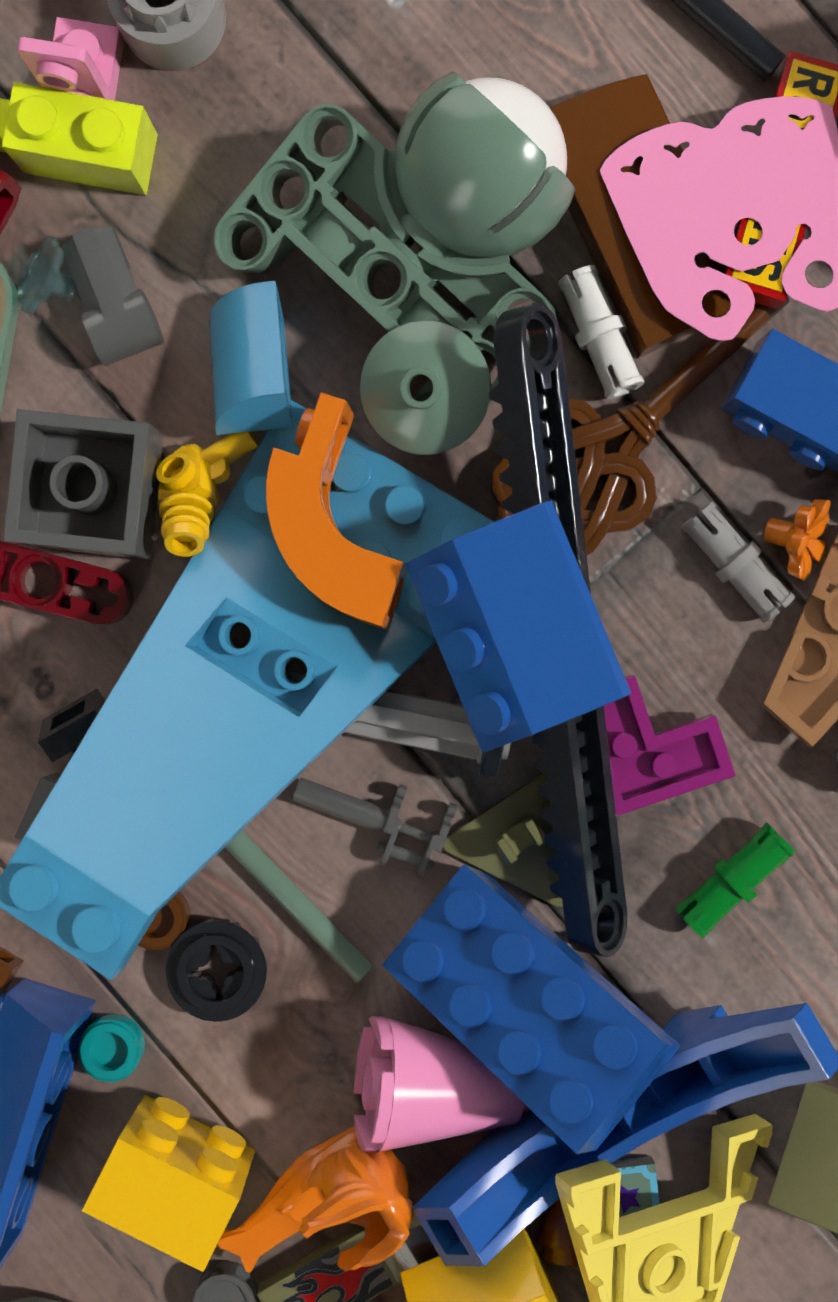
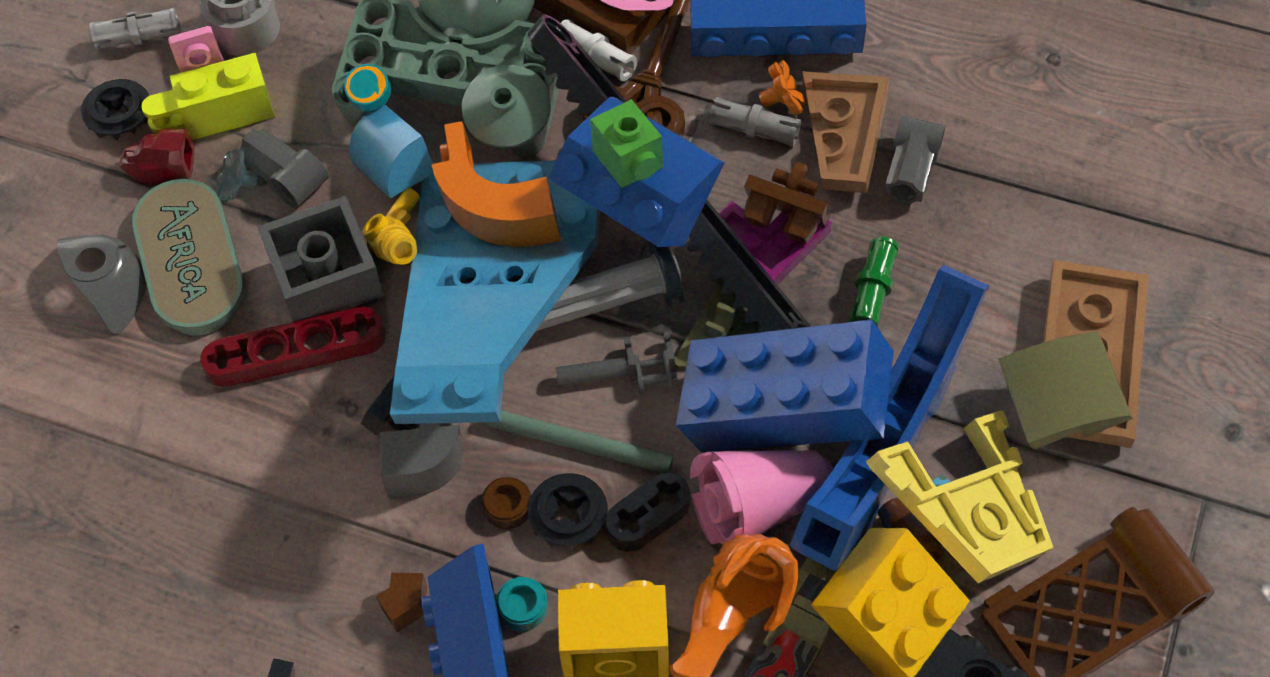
camera: 25 degrees left, 30 degrees down
(259, 256) = (367, 87): none -> teal tile
(307, 1034) = (642, 503): none -> black beam
(512, 623) = (627, 143): none -> bright green brick
(706, 761) = (804, 210): none -> reddish brown hips

